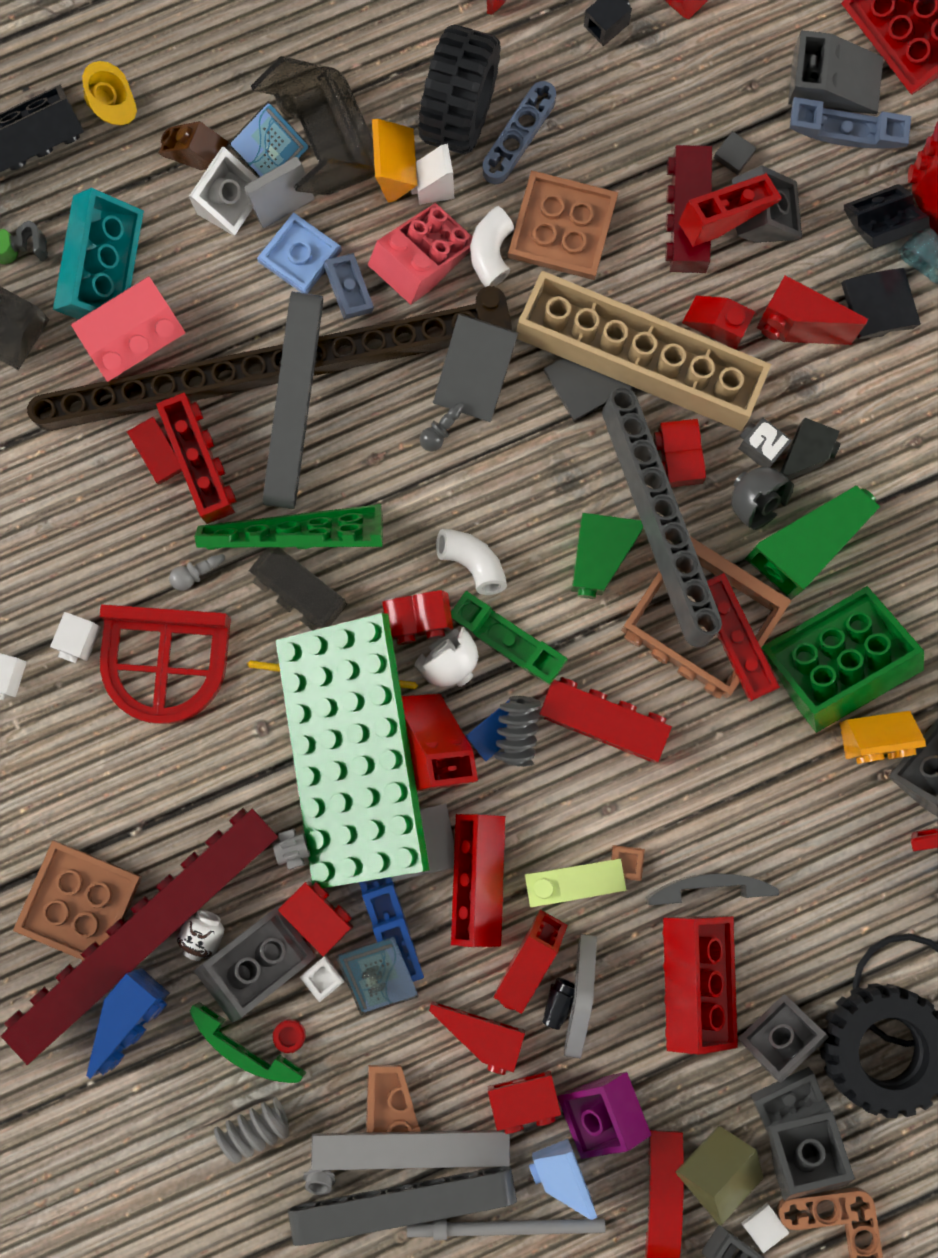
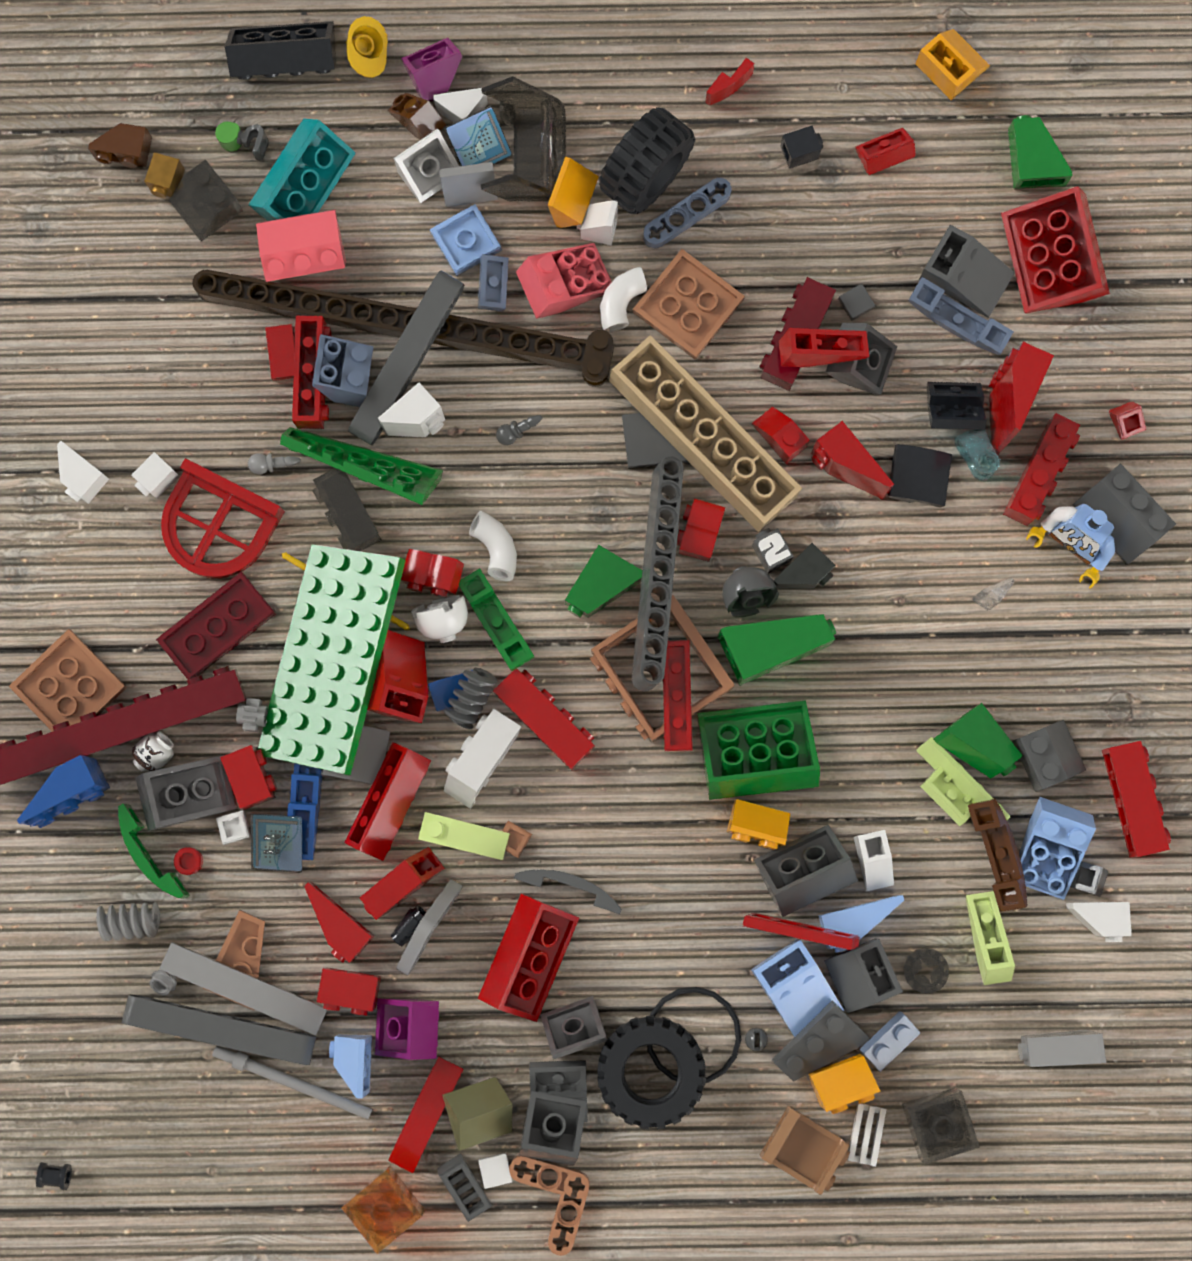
camera: 20 degrees right, 0 degrees up
(188, 89) = (433, 68): none -> magenta slope
(210, 771) = (216, 626): none -> dark red tile
(231, 441) = (342, 370): none -> sand blue slope
(233, 114) = (460, 103): none -> white slope
(327, 457) = (413, 415): none -> white slope
(475, 367) = (564, 391): dark grey tile -> none
(557, 791) = (480, 757): none -> white wedge

